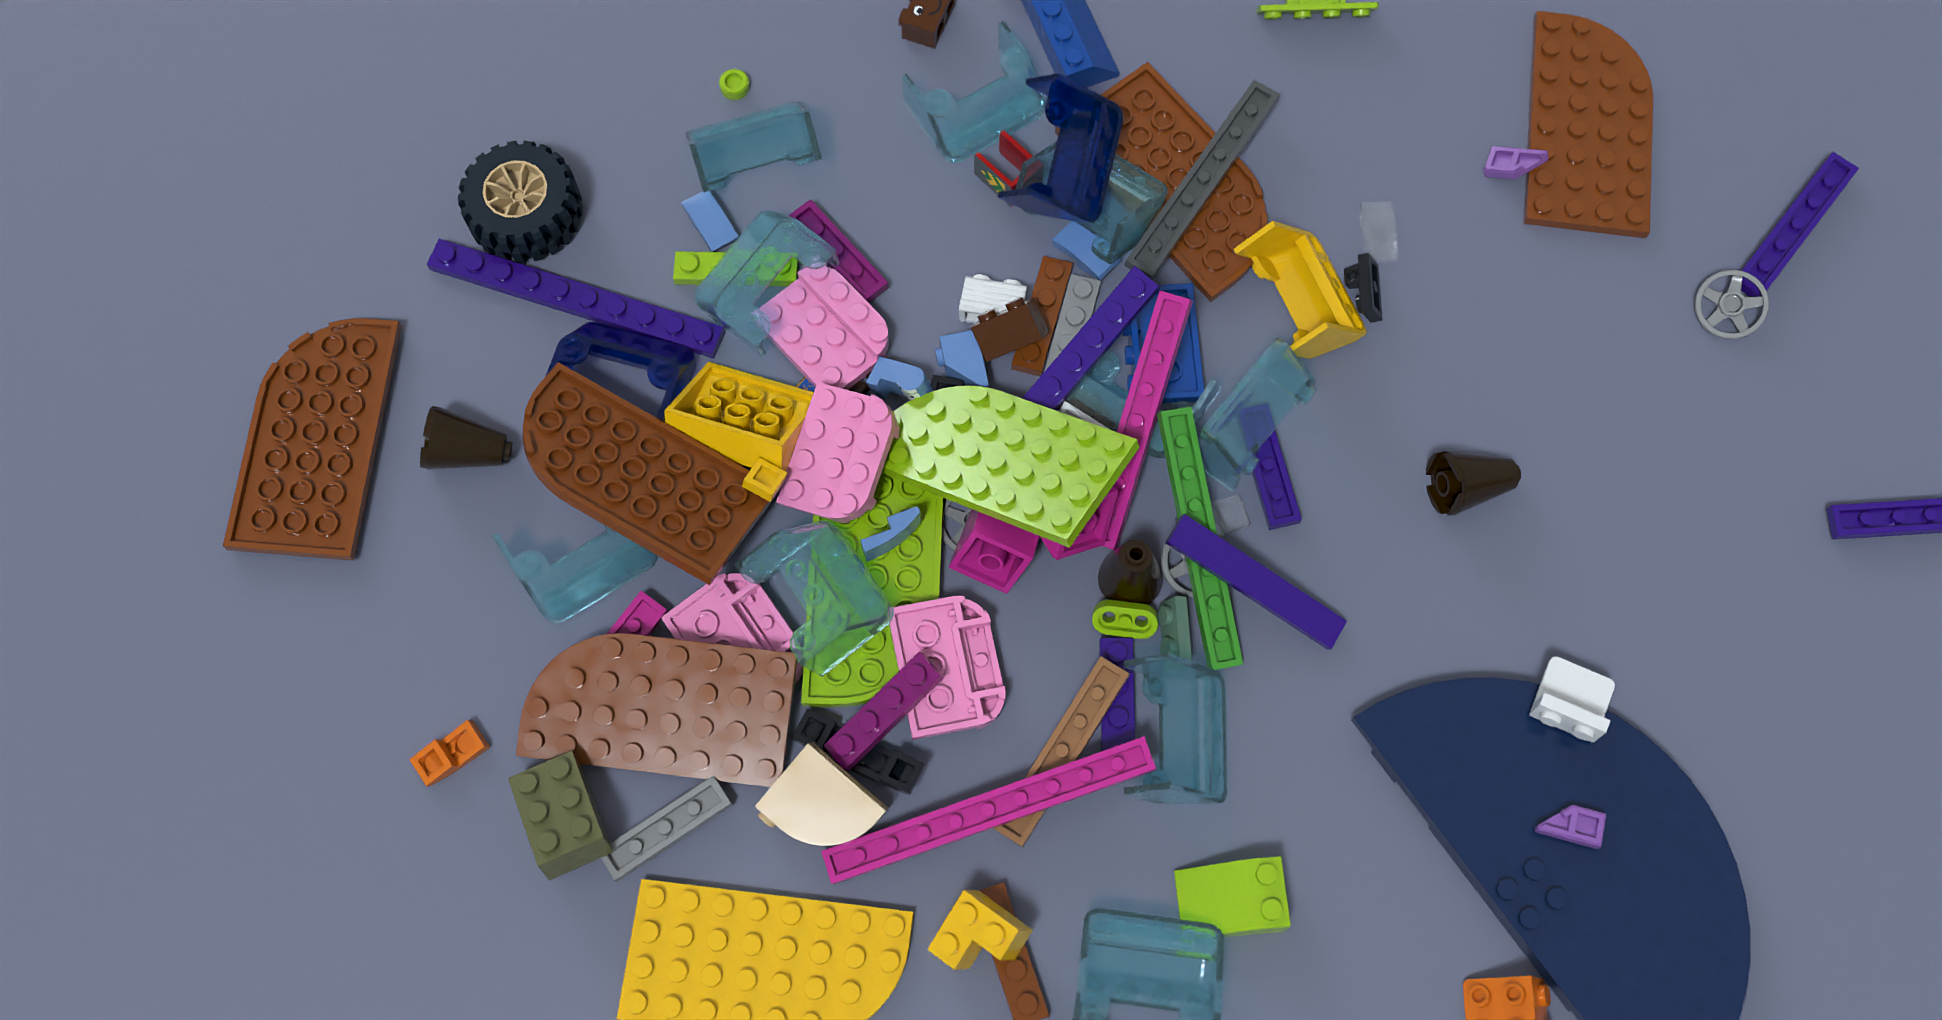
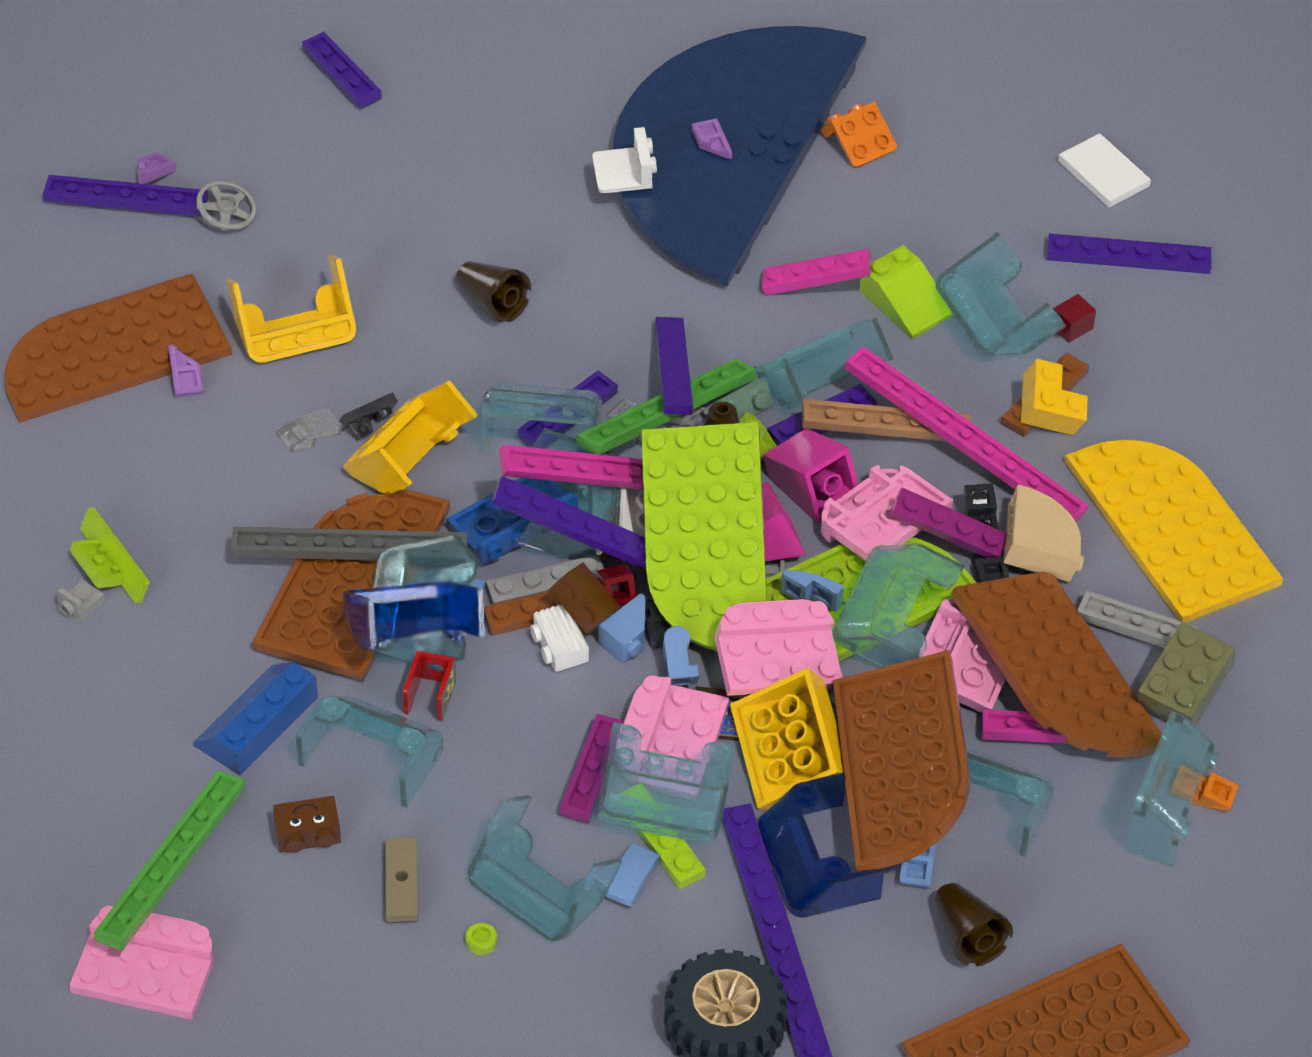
camera: 125 degrees left, 20 degrees down
(444, 700) = (1169, 790): none -> clear light blue windscreen
(764, 479) = (838, 679): yellow plate -> none
(827, 52) = (401, 879): none -> dark tan tile
(1015, 374) = (618, 583): none -> dark red brick
(1044, 636) = (811, 470): none -> dark pink slope
(1308, 814) = (816, 272): none -> dark pink plate
(1521, 273) = (298, 333): none -> yellow windscreen
(1825, 266) = (153, 167): none -> medium lavender tile

